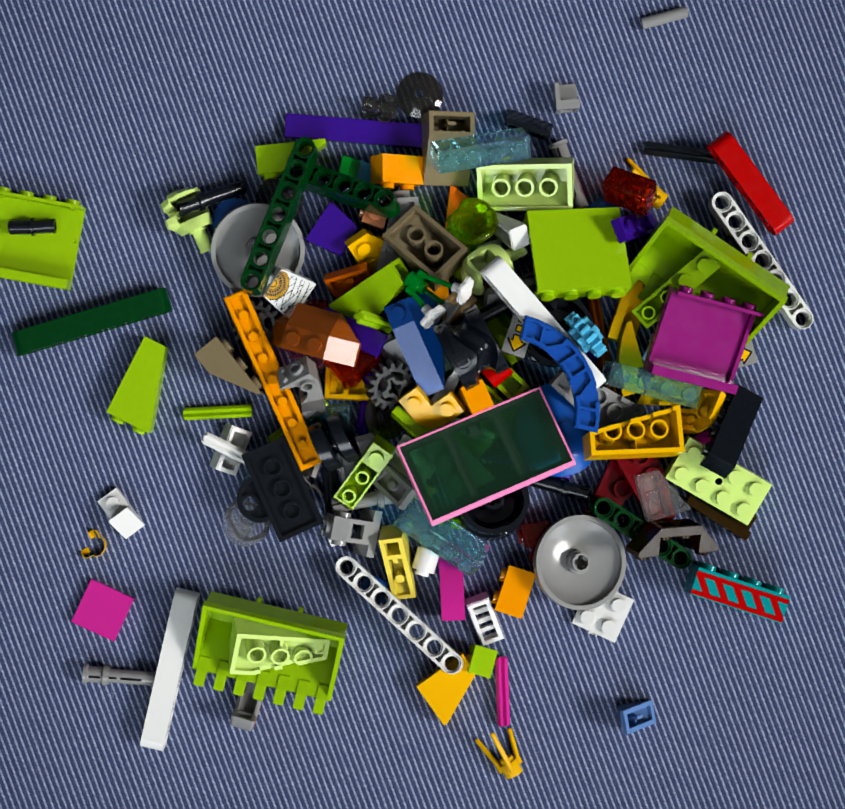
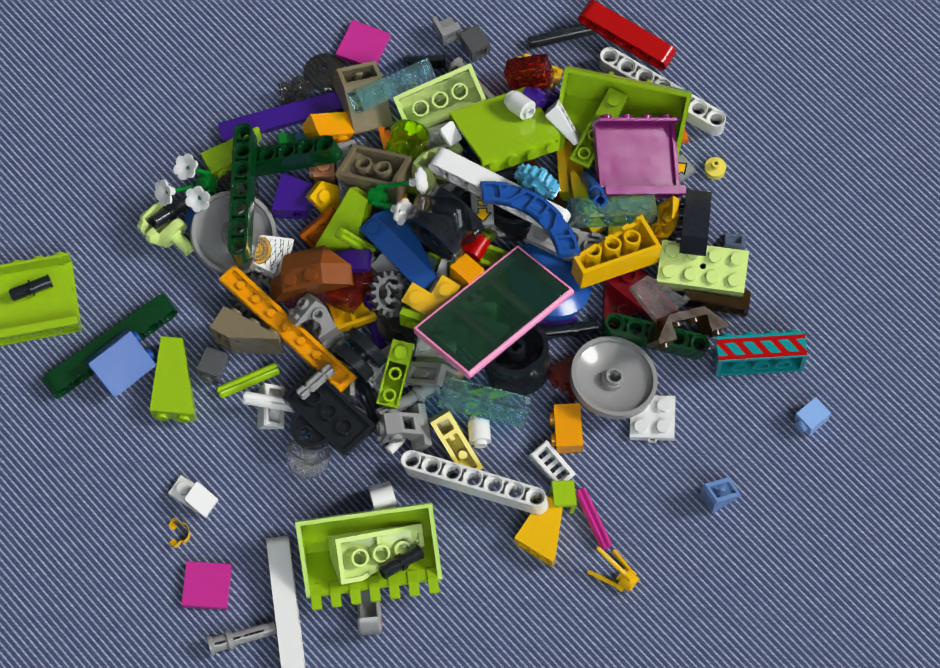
camera: 15 degrees left, 20 degrees down
(94, 349) = (121, 362): none -> brick
(186, 384) = (212, 365): none -> dark grey brick
(228, 174) = (197, 194): none -> white plant
(279, 454) = (315, 381): none -> light grey axle
(296, 672) = (401, 562): none -> black pin
(302, 596) = (382, 495): none -> white beam
(451, 592) = (512, 448): dark pink slope -> none
(470, 81) = (362, 44): none -> dark pink tile
(588, 126) = (474, 43): none -> dark grey brick
(603, 235) = (520, 104): none -> white brick
(639, 267) = (559, 118): none -> white slope
(641, 361) = (594, 190): none -> blue pin
(759, 674) = (811, 417): none -> light blue brick
(761, 460) = (734, 241): none -> sand blue slope
(773, 367) = (715, 168): none -> light yellow tile

